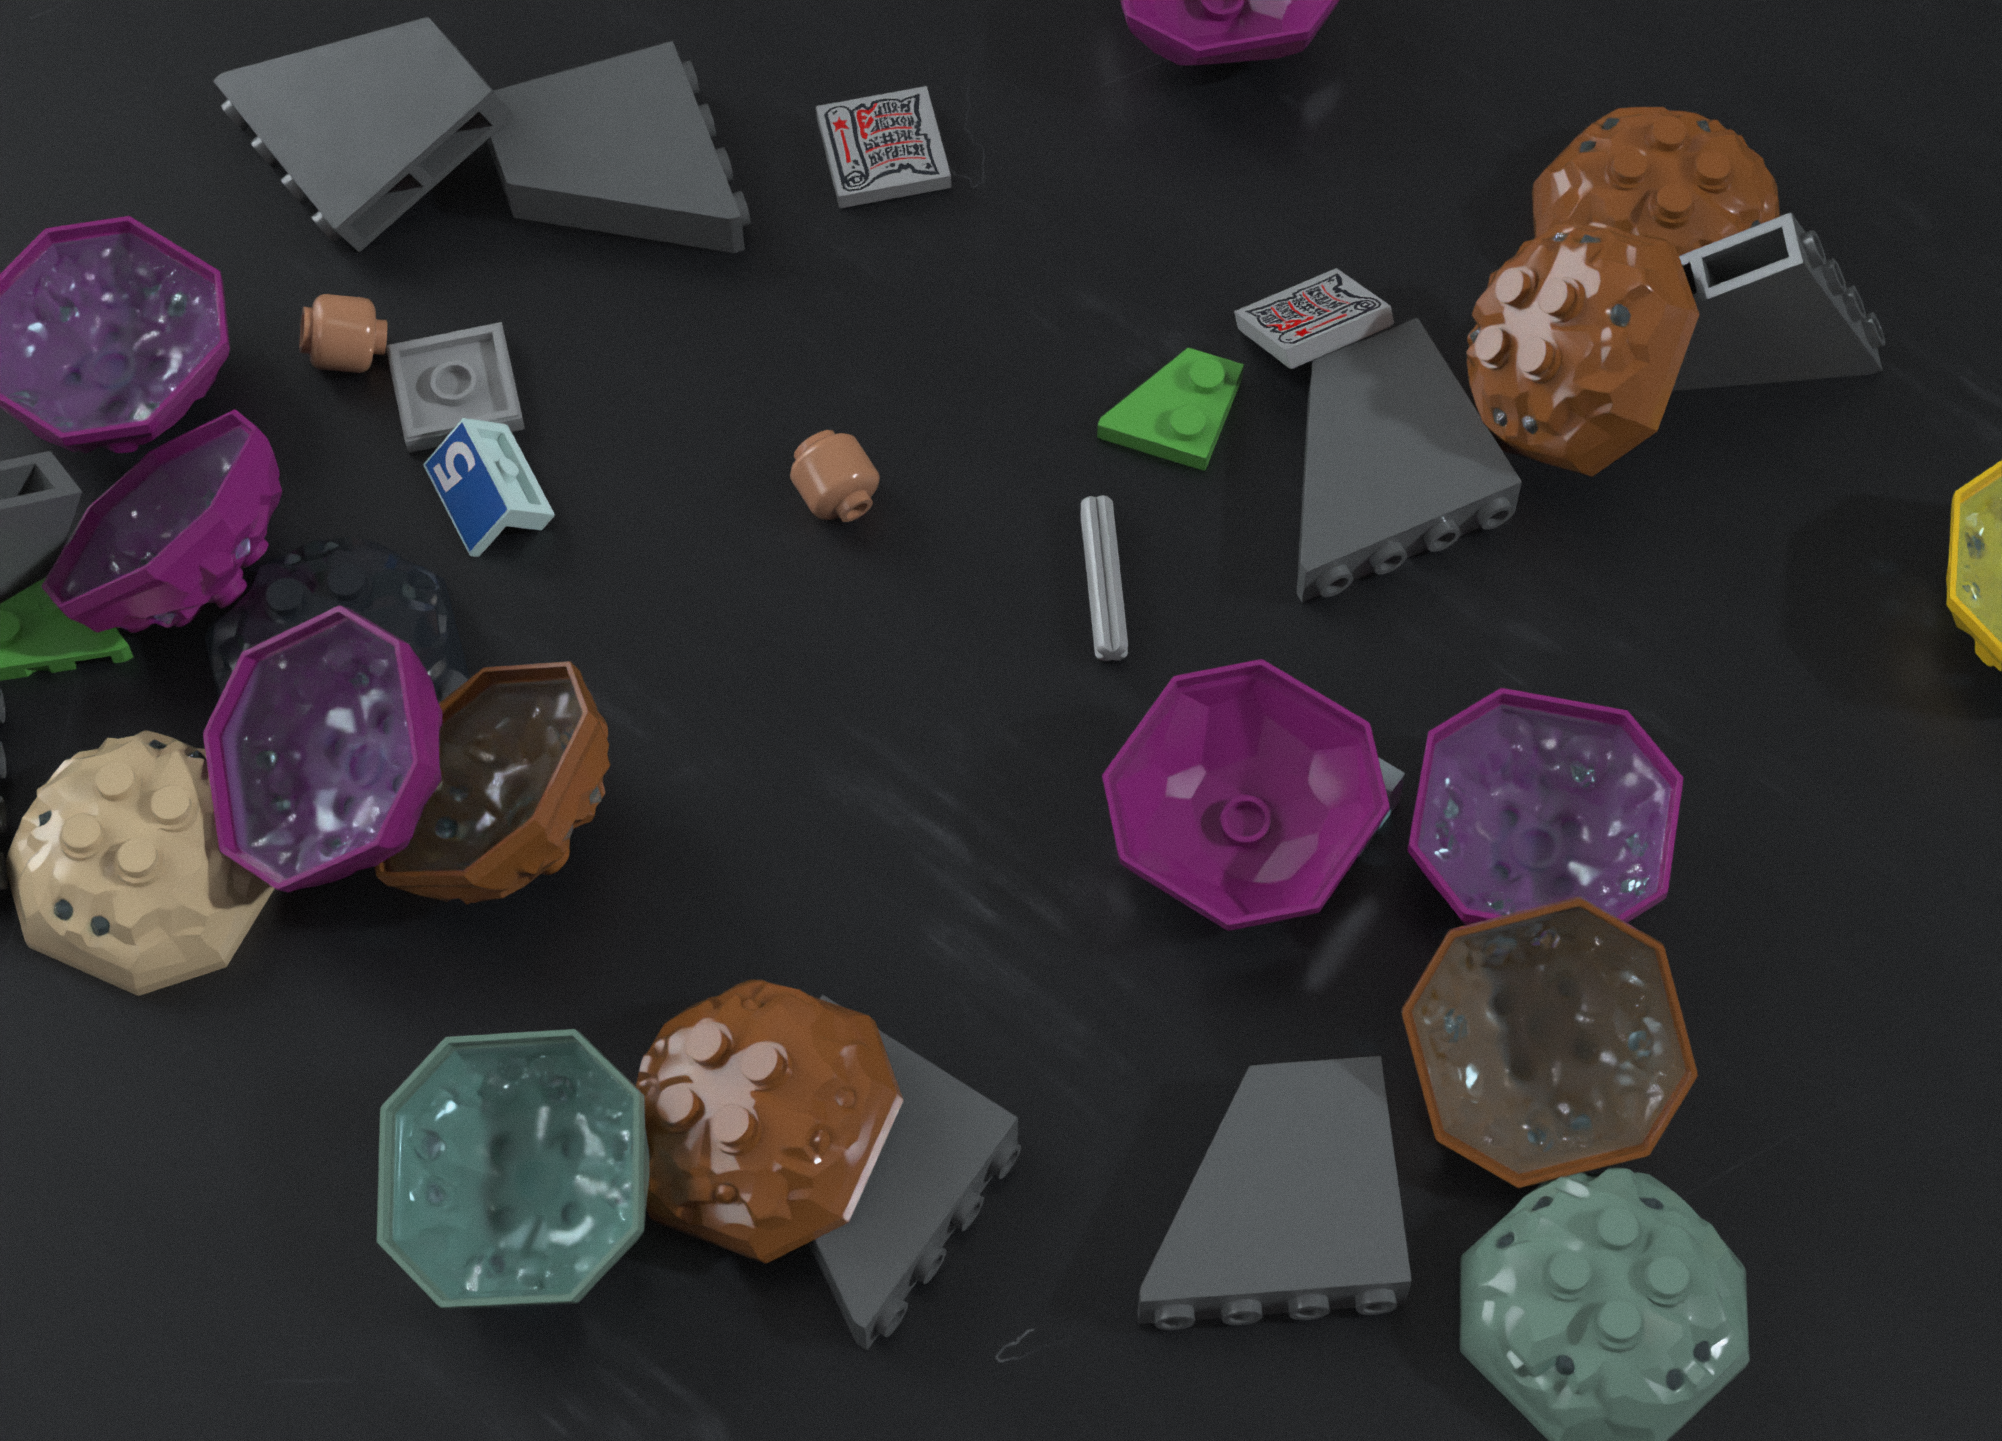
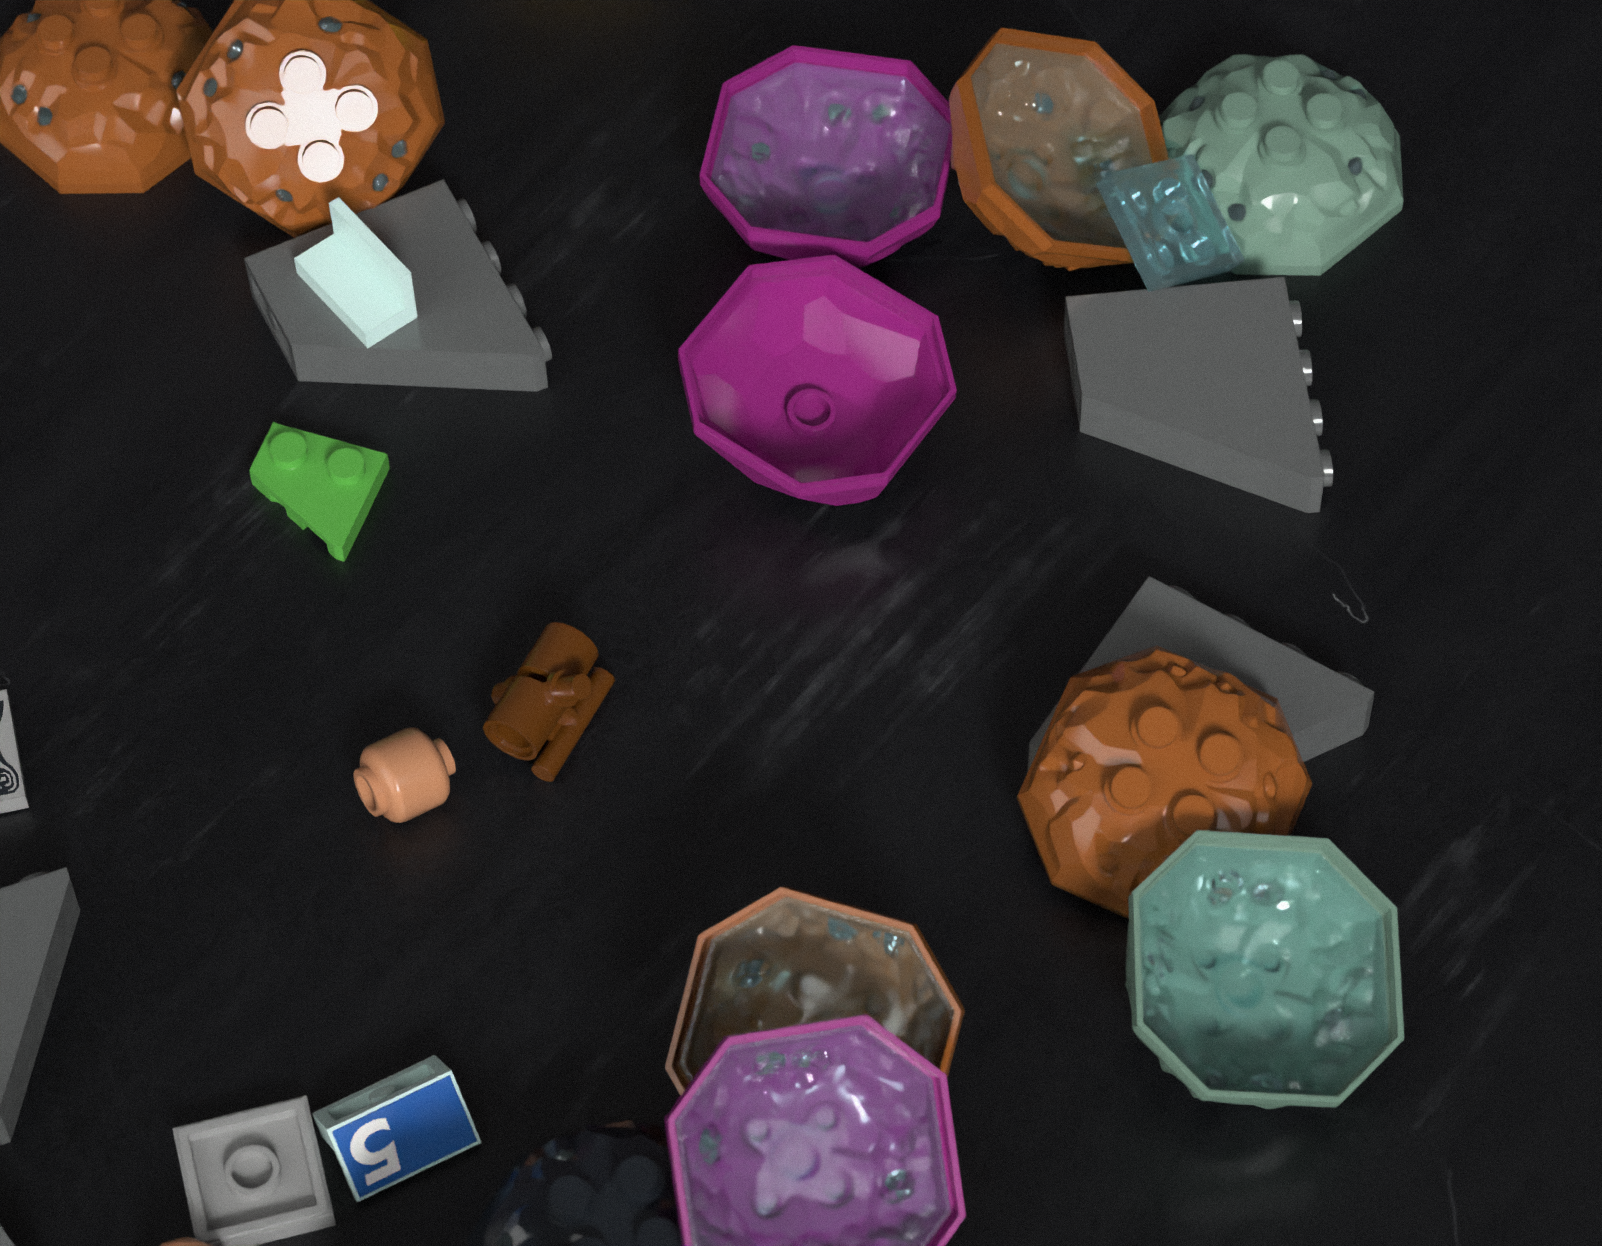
camera: 90 degrees left, 5 degrees down
(909, 591) = (548, 700): none -> reddish brown pin
(1104, 578) = (524, 543): light grey axle -> none
(1314, 318) = (228, 354): light grey tile -> none
(1377, 403) = (359, 278): none -> light aqua panel
(1470, 1158) = (1170, 222): none -> clear light blue plate

